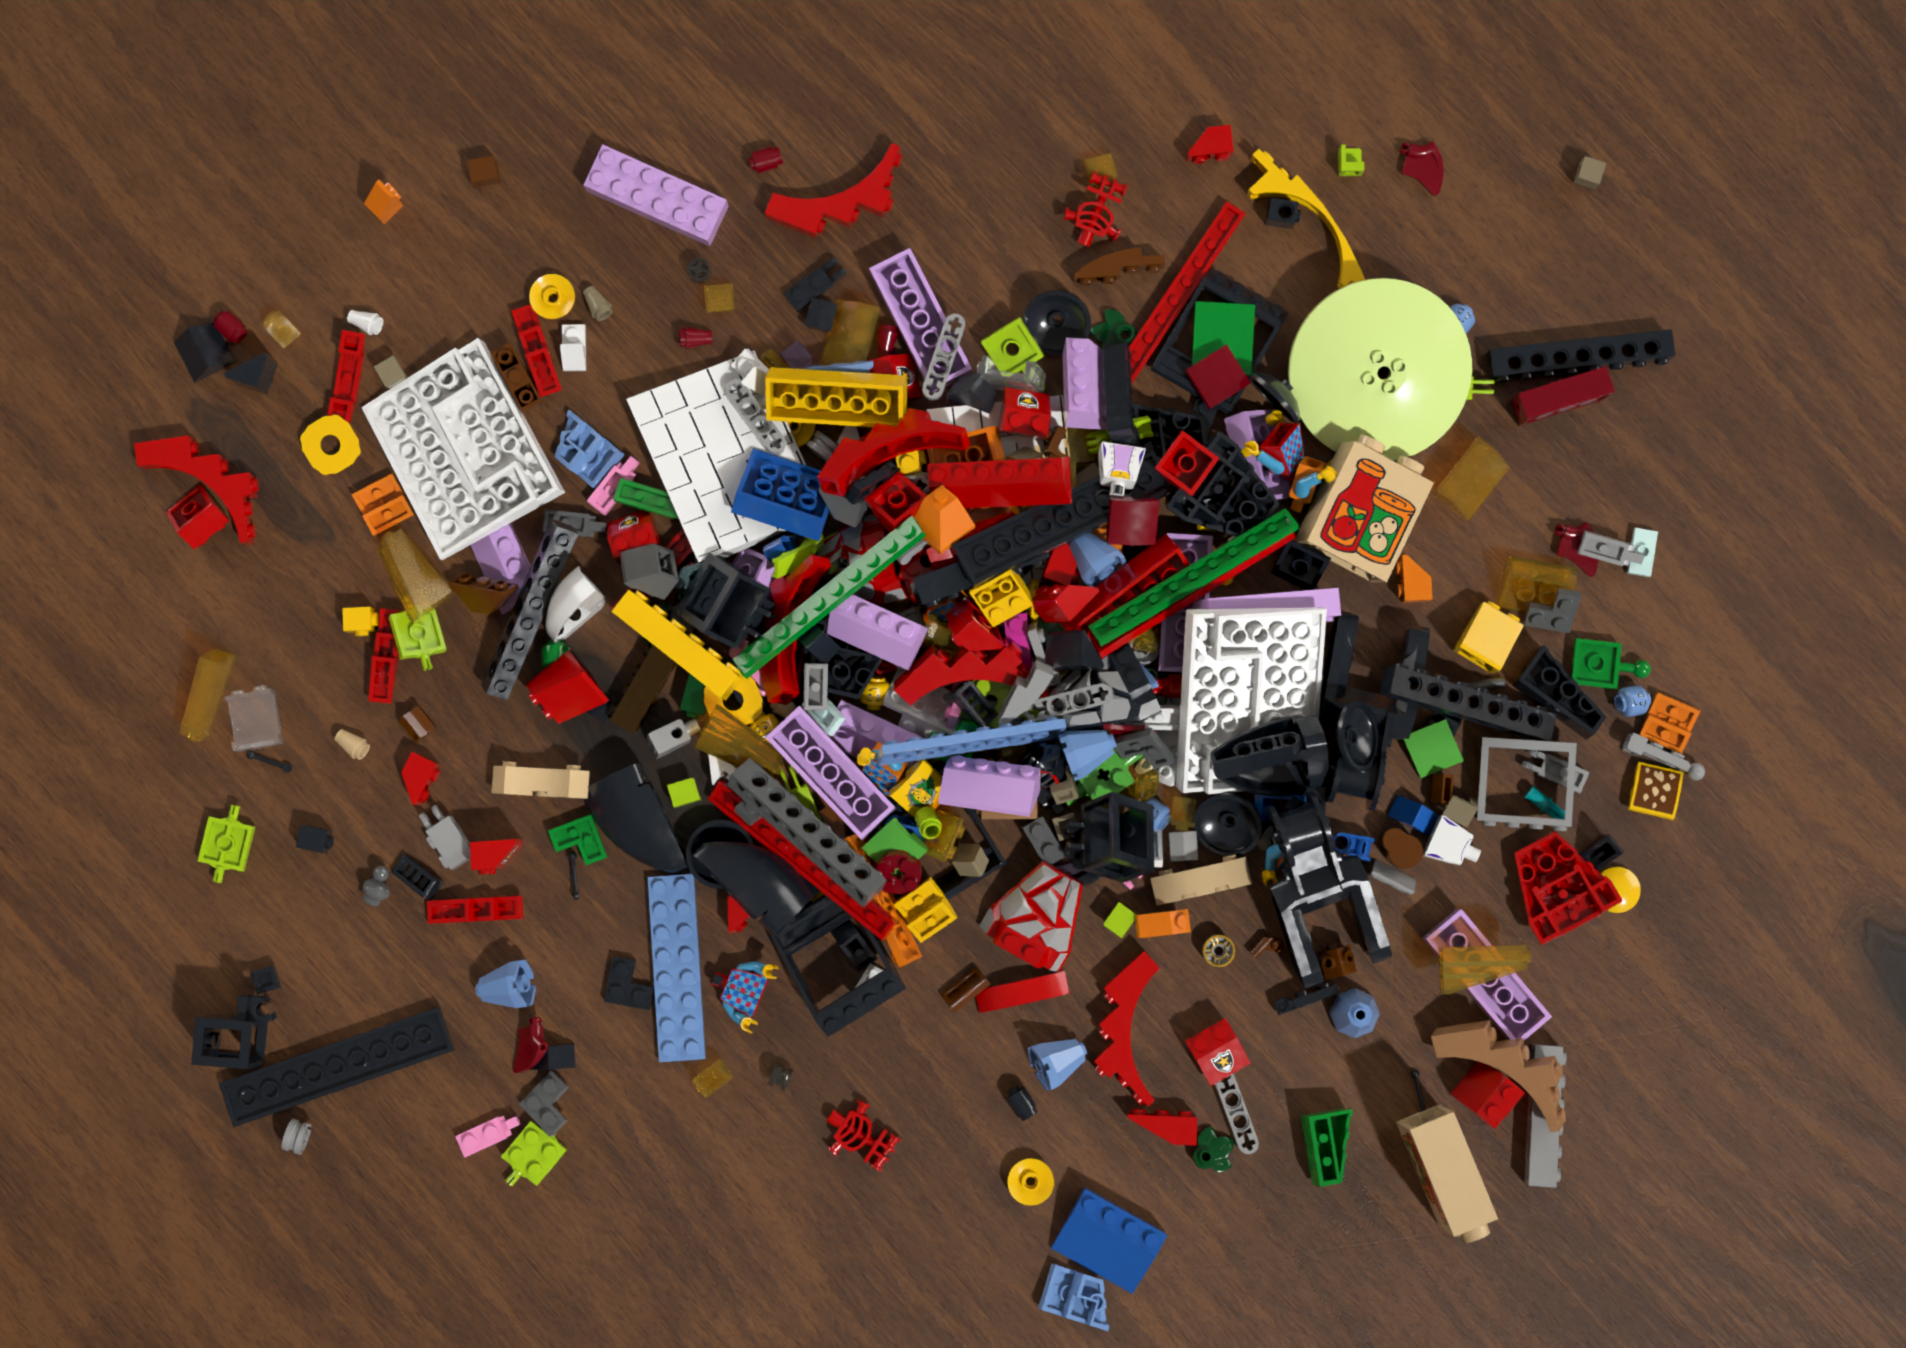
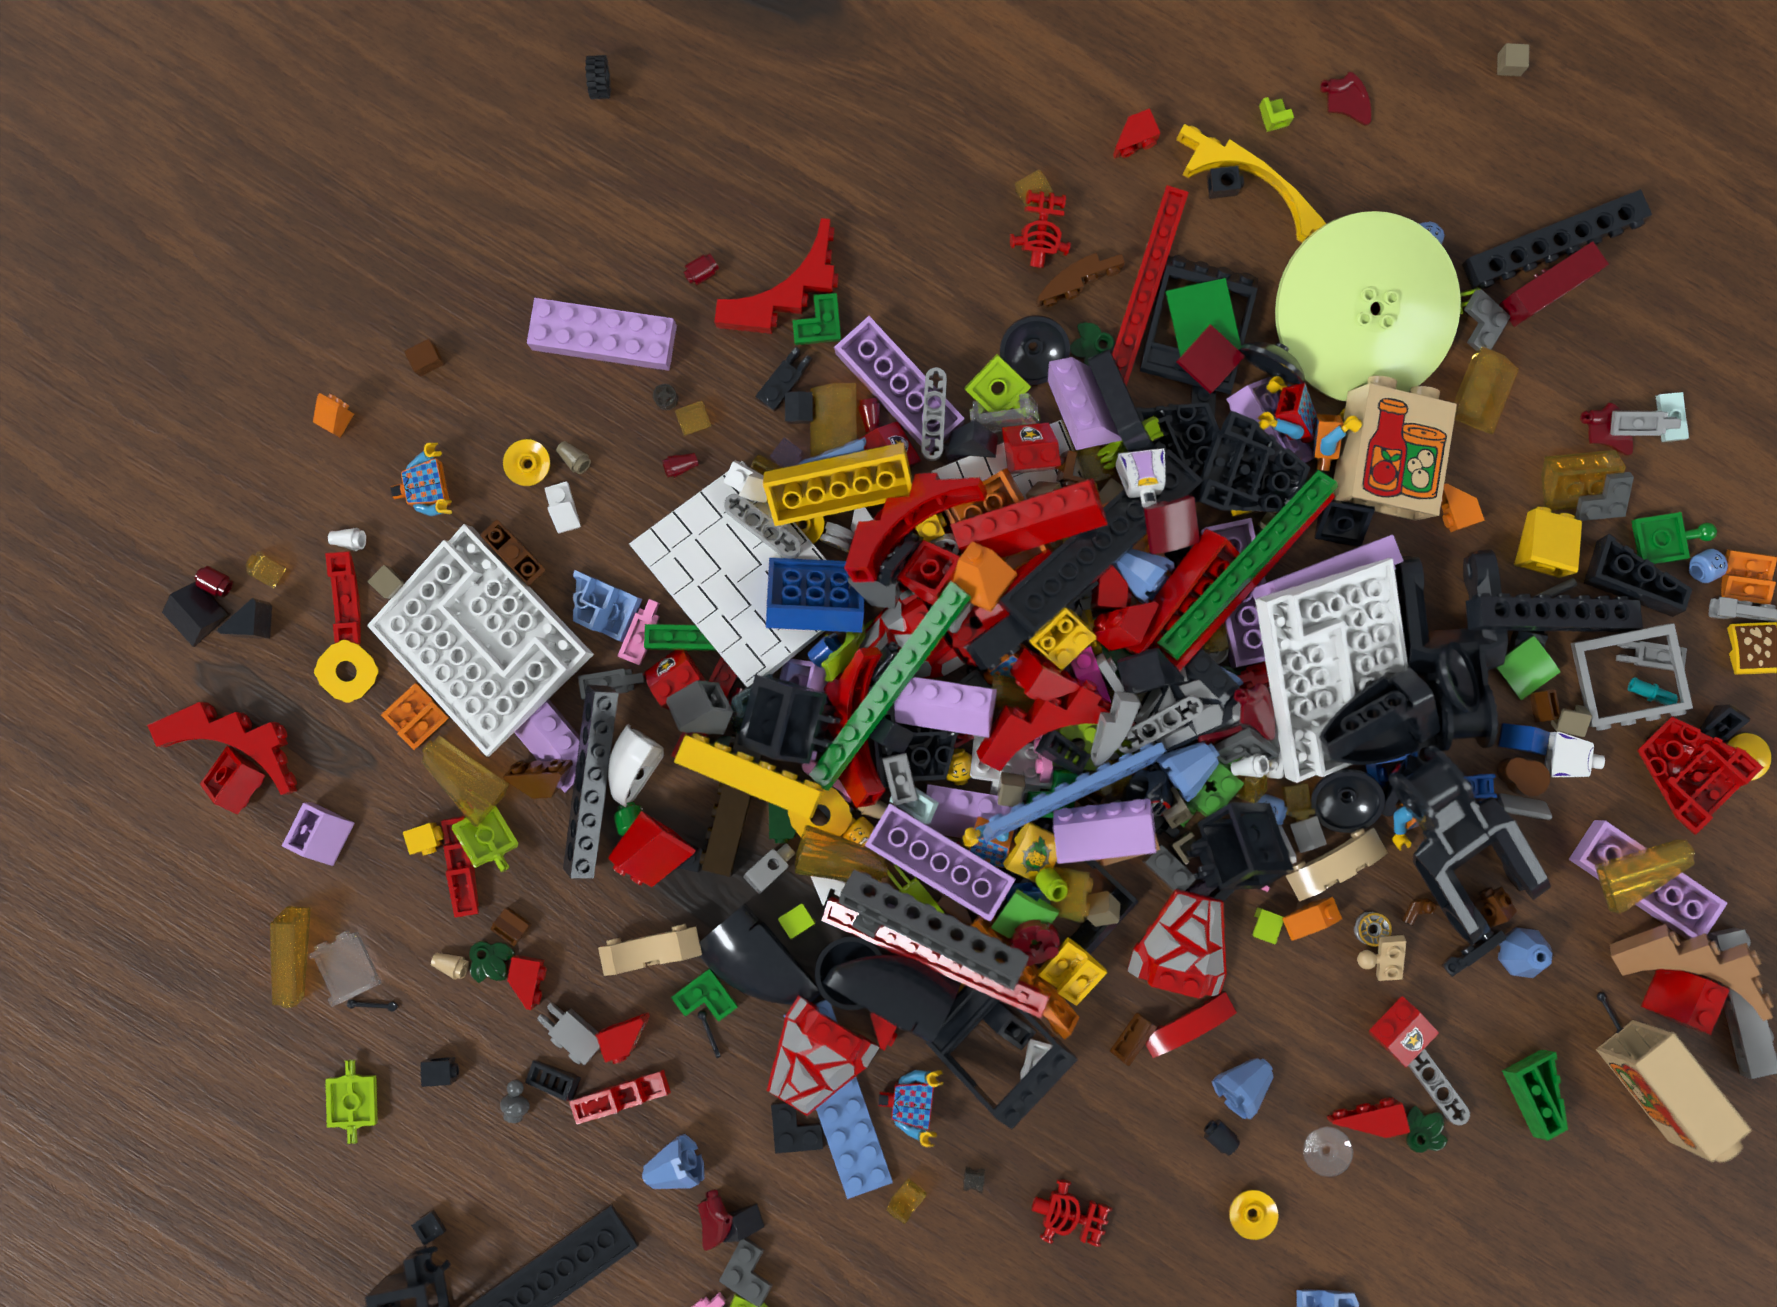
camera: 15 degrees left, 0 degrees up
(263, 588) = (318, 833): none -> lavender slope
(390, 754) = (492, 963): none -> dark green plate
(451, 290) = (424, 483): none -> torso
(536, 350) = (526, 520): red slope -> none
(666, 922) = (815, 1057): none -> wedge
(863, 246) = (823, 327): none -> green plate
(916, 724) = (1010, 789): none -> dark tan piece
(1109, 1240) = (1348, 1250): blue slope -> none
(1116, 1156) = (1340, 1151): none -> clear dish
(1117, 1056) = (1303, 1064): red arch -> none
(1147, 766) = (1253, 766): none -> white cone
(1163, 714) = (1257, 710): none -> dark red arm
(1186, 463) = (1210, 452): red slope -> none
(1224, 982) = (1388, 960): none -> tan plate
(1496, 412) = (1490, 320): none -> dark grey plate

